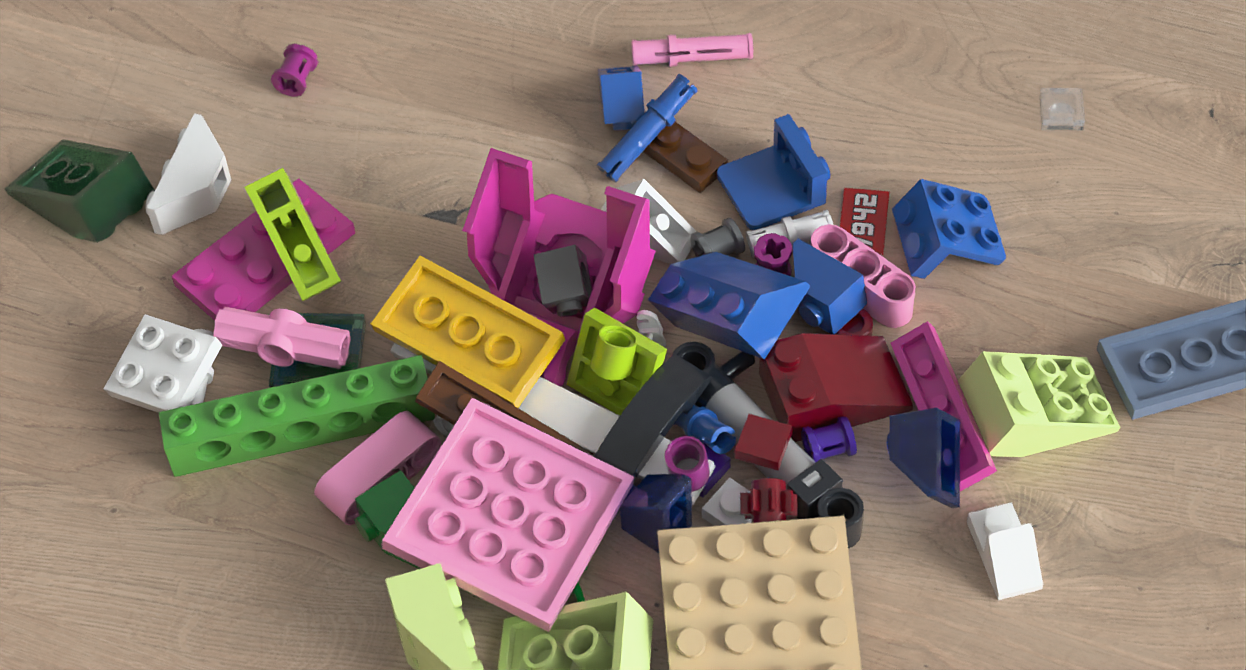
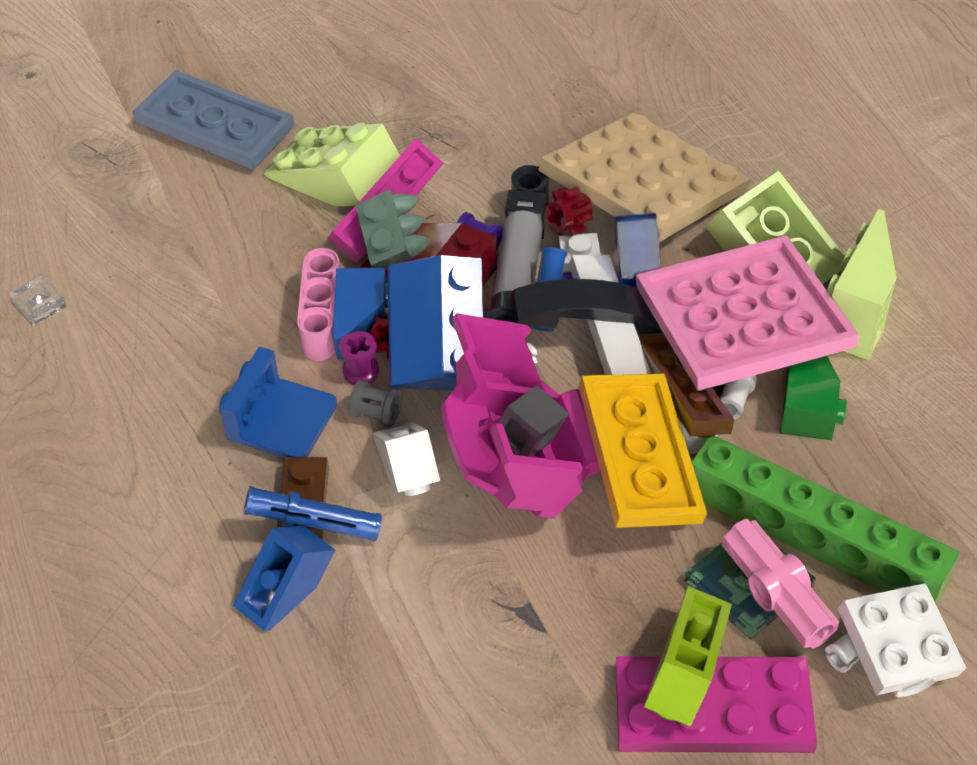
camera: 135 degrees left, 5 degrees down
(398, 445) = (798, 443): bright pink beam -> none
(612, 361) = (558, 346): lime plate -> none
(684, 448) = (597, 248): magenta beam -> none
(692, 49) = (195, 578): bright pink pin -> none
(763, 442) = (531, 233): dark red tile -> none
(792, 229) = (318, 370): white pin -> none
(865, 216) = (273, 338): red sticker -> none
(882, 353) = (389, 228): none -> sand green plate
(928, 452) = (438, 173): clear blue slope -> none
(945, 221) = (231, 289): blue bracket -> none
(1006, 550) = (456, 123): white slope -> none

